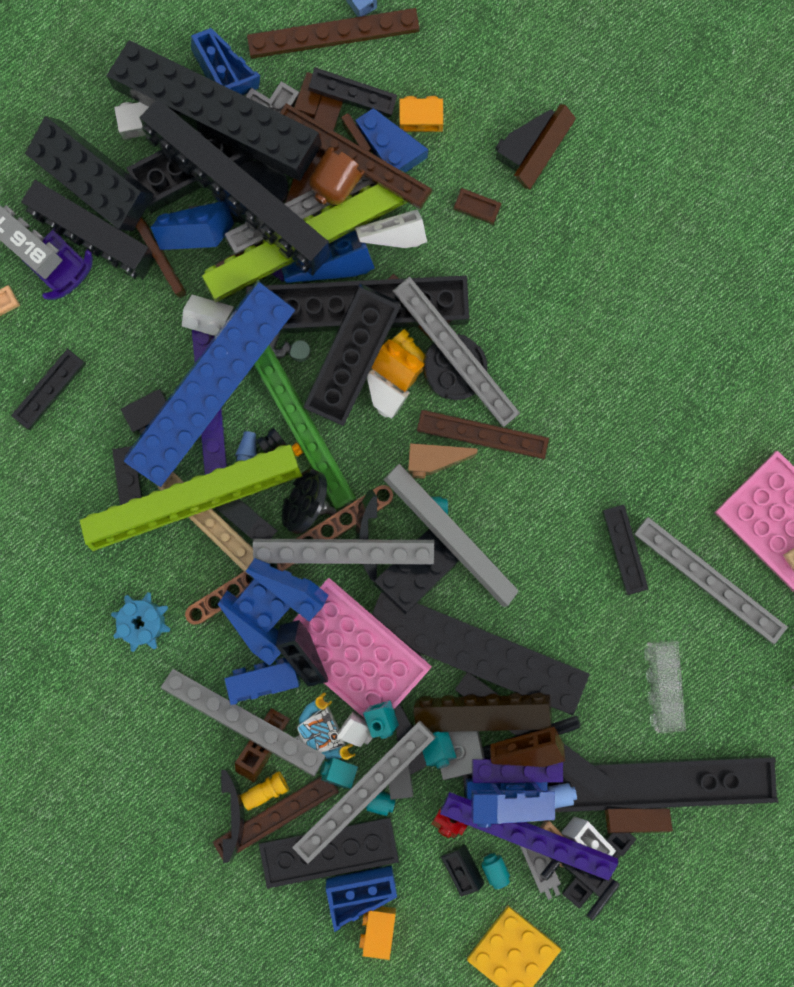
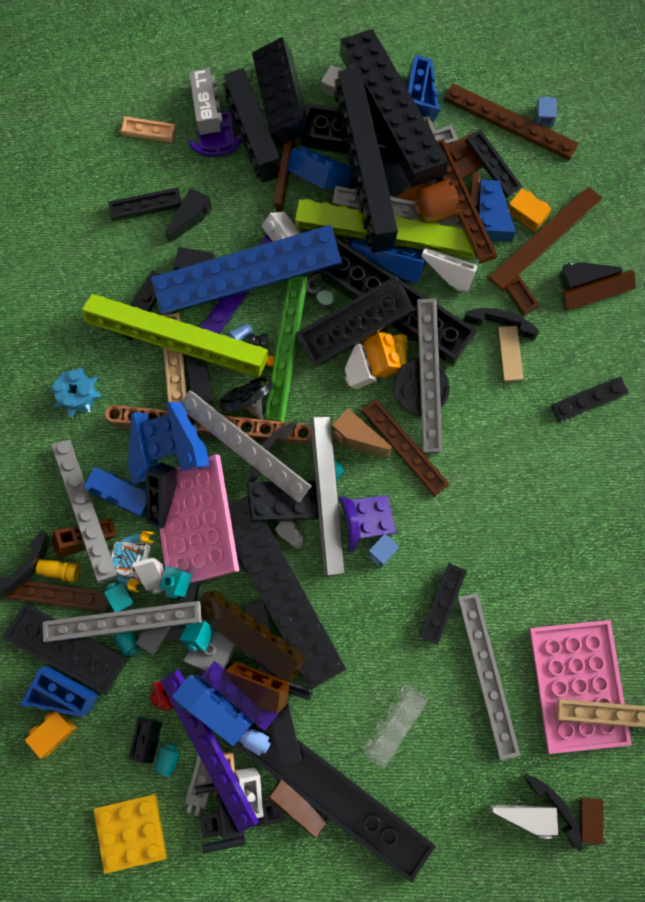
camera: 45 degrees right, 10 degrees down
(101, 364) = (189, 214): none -> black slope
(445, 595) = (290, 533): none -> dark grey rock
(457, 132) = (545, 238): none -> reddish brown tile
(501, 527) = (367, 518): none -> dark purple piece
(504, 236) = (525, 328): none -> black slope
(510, 271) = (510, 354): none -> tan tile
(538, 544) = (383, 550): none -> medium blue brick
(613, 259) = (589, 399): none -> black plate

